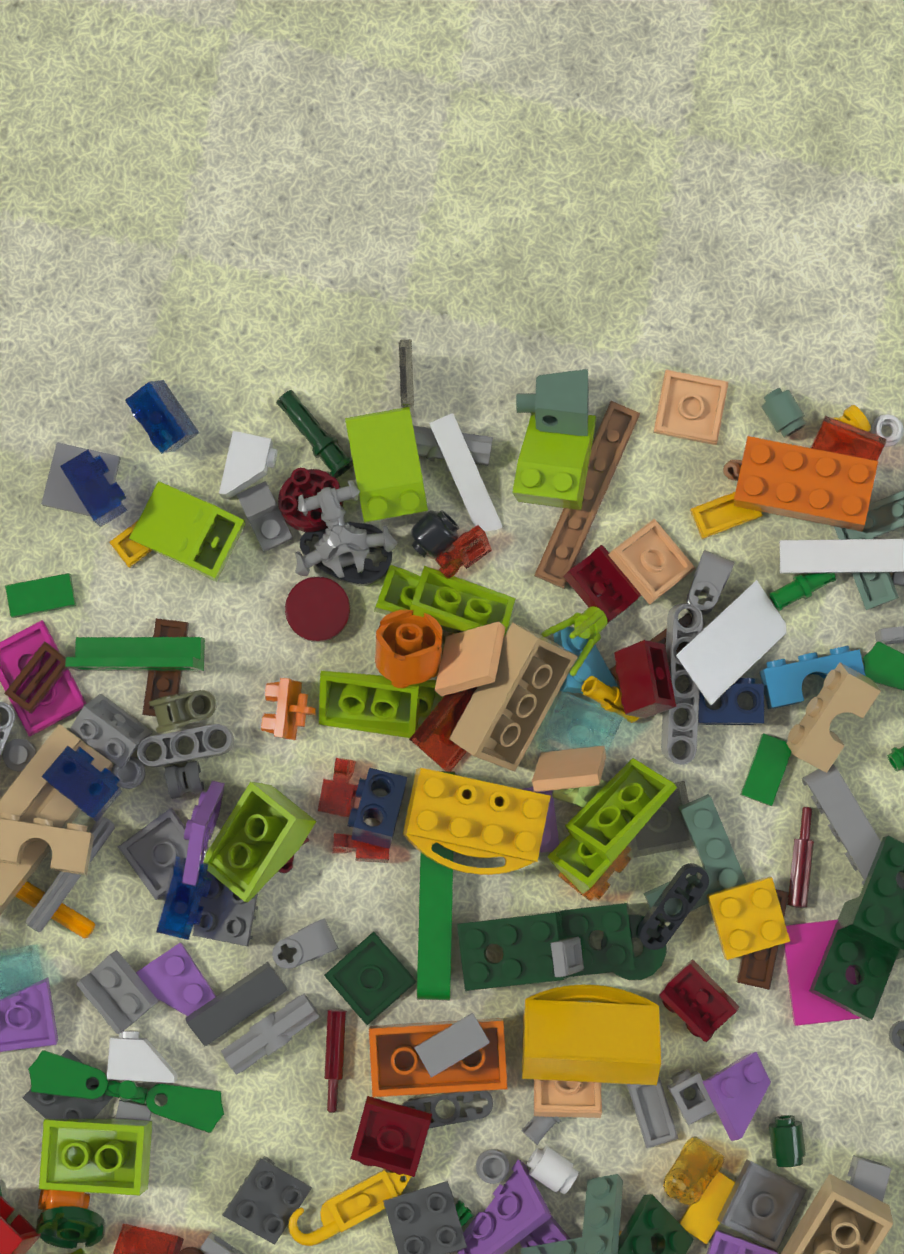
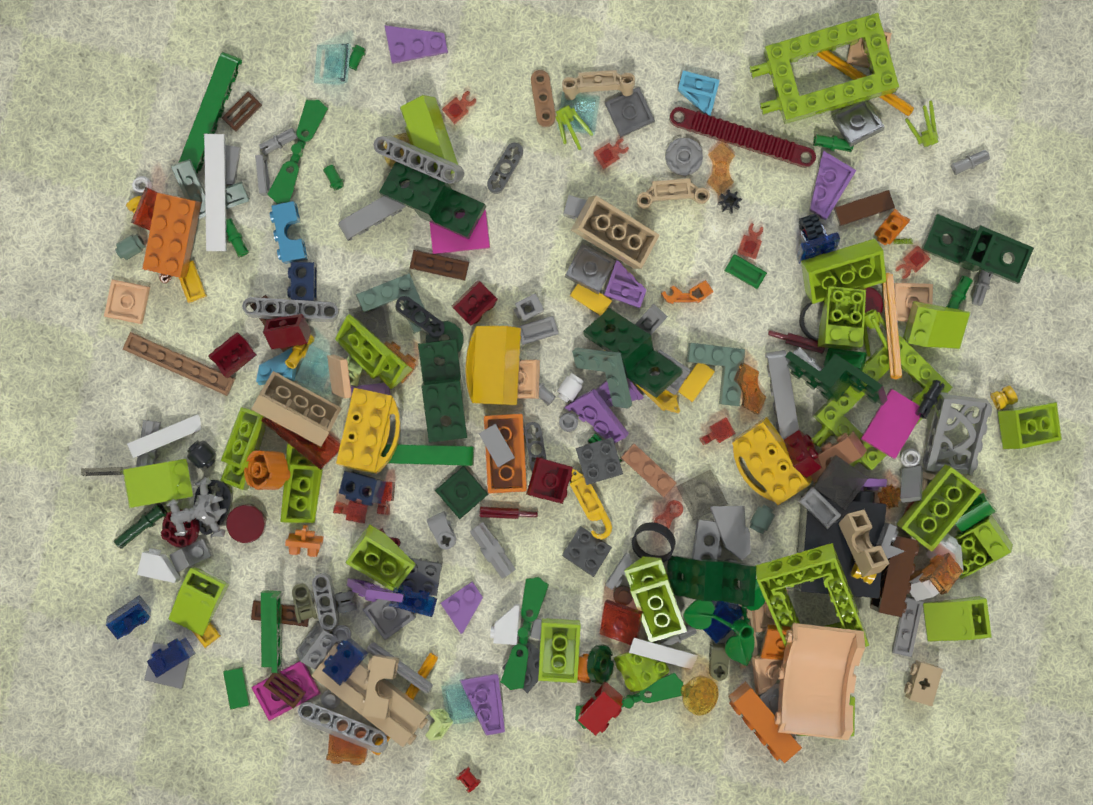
camera: 85 degrees left, 5 degrees up
(117, 992) = (468, 639): light grey bracket -> none
(236, 1004) = (475, 570): dark grey tile -> none
(467, 550) = (212, 435): clear red plate -> none
(470, 659) = (272, 434): light nougat tile -> none
(553, 467) = (157, 383): lime slope -> none
(559, 402) = (122, 380): sand green torso -> none
(567, 956) = (446, 378): light grey tile -> none
(586, 625) = (256, 365): lime plant -> none
(651, 561) = (218, 326): light nougat tile -> none
(695, 1168) = (569, 306): clear yellow piece -> none
(709, 578) = (229, 292): light grey piece -> none
(732, 642) = (266, 279): white sticker -> none
(738, 1092) = (526, 281): medium lavender wing -> none
(748, 918) = (427, 273): yellow plate -> none
(766, 770) = (342, 260): green tile -> none
(787, 1141) = (554, 253): dark green brick -> none
(801, 863) = (397, 241): dark red axle -> none
(842, 692) = (295, 216): tan arch -> none

